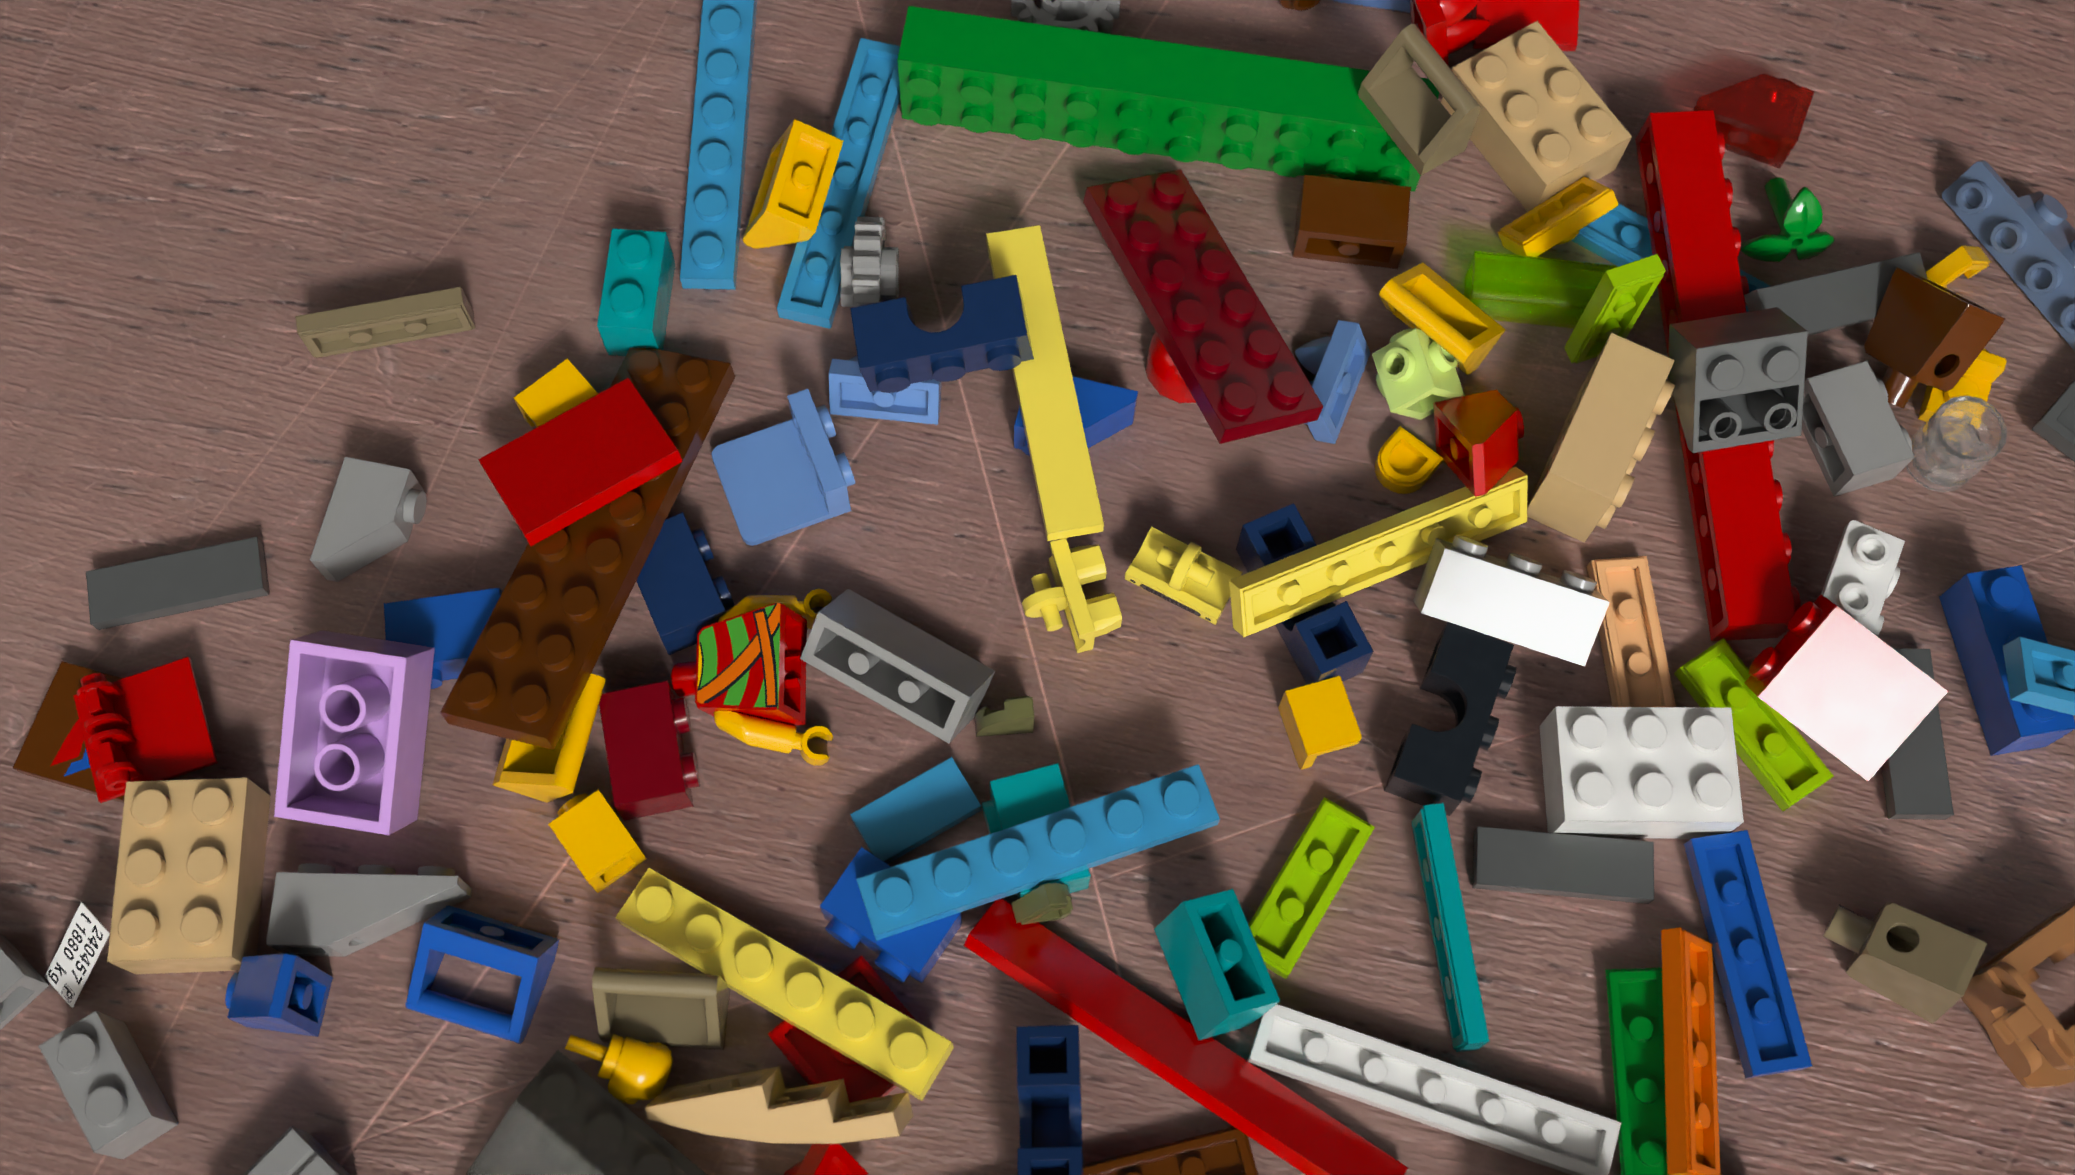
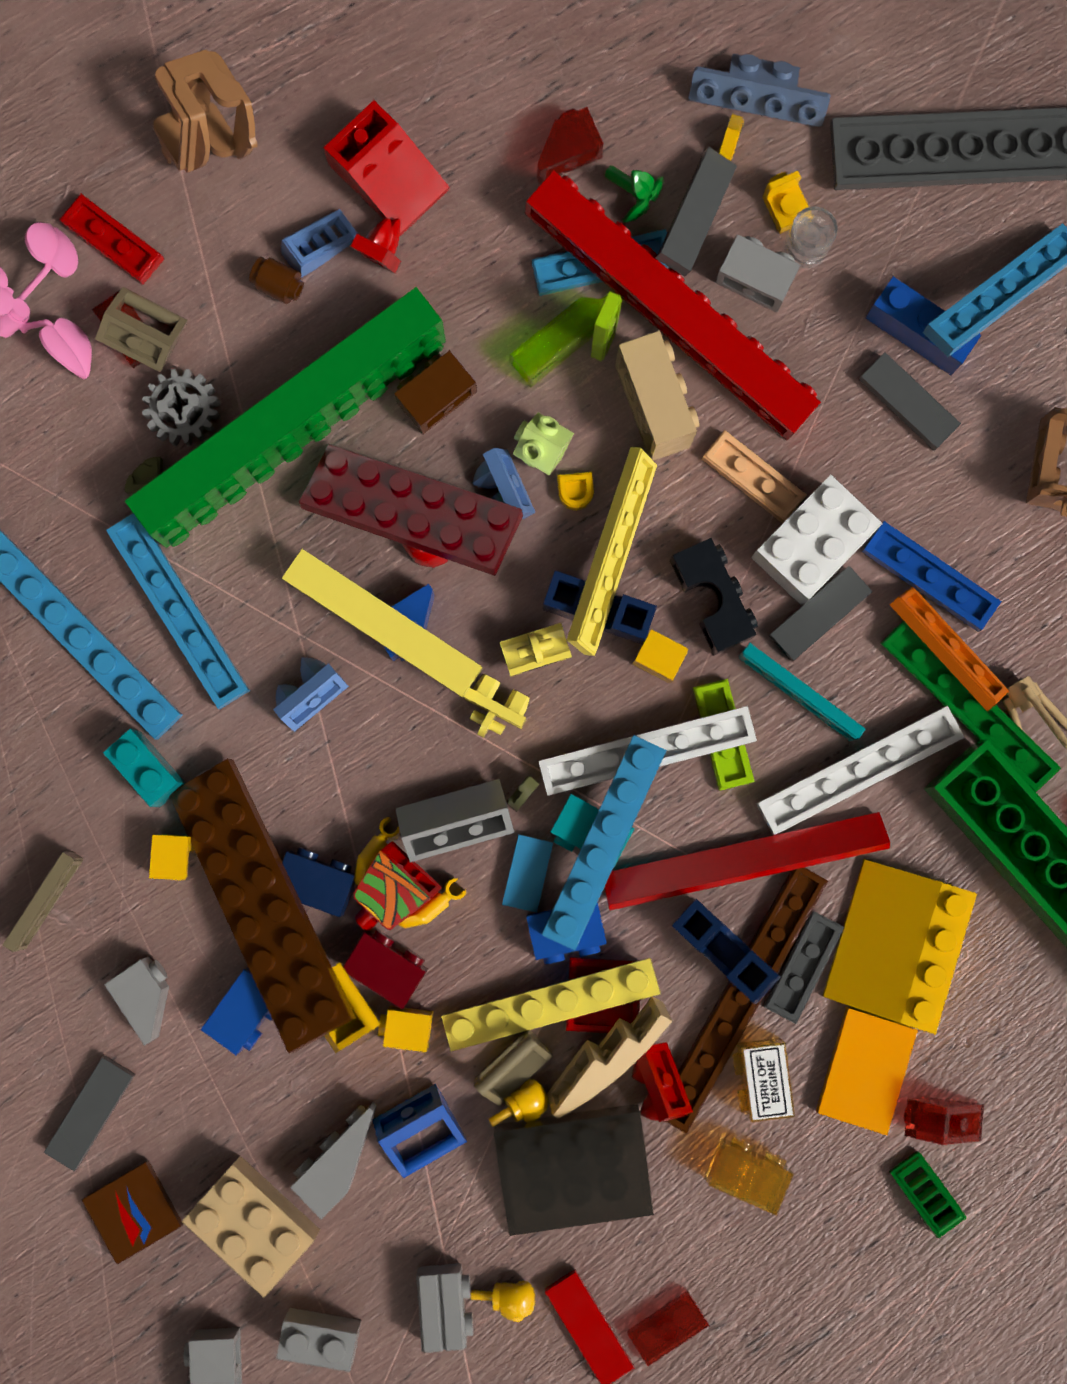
camera: 45 degrees left, 15 degrees up
(77, 955) = (243, 1306): white sticker -> none
(143, 727) = (156, 1189): red hinge -> none
(278, 994) = (347, 1233): blue slope -> none
(353, 732) = (255, 1097): lavender brick -> none
(580, 461) = (217, 878): red tile -> none
(785, 474) = (307, 784): medium blue bracket -> none
(793, 187) = (160, 642): yellow tile -> none
(869, 266) = (247, 652): light grey gear -> none
(986, 336) = (339, 629): dark blue arch -> none
(1043, 904) = (626, 860): olive tile -> none
(1216, 964) = (723, 811): teal brick -> none
(1245, 834) = (681, 742): none -> white plate
(1409, 107) = (423, 315): dark tan tile -> none
(1442, 313) = (527, 403): yellow tile -> none
(1478, 437) = (601, 449): red slope -> none
(1511, 599) = (689, 517): brick -> none
(1539, 117) = (468, 250): tan brick -> none
(1558, 218) = (529, 295): yellow plate -> none
(1738, 378) = (693, 308): dark grey slope -> none
(1762, 736) = (844, 463): lime tile -> none
(1843, 686) = (868, 415): brick -> none
(1864, 573) = (831, 356): white bracket -> none
(1907, 957) = (1012, 510): dark tan torso -> none
(1926, 335) = (752, 193): reddish brown torso -> none

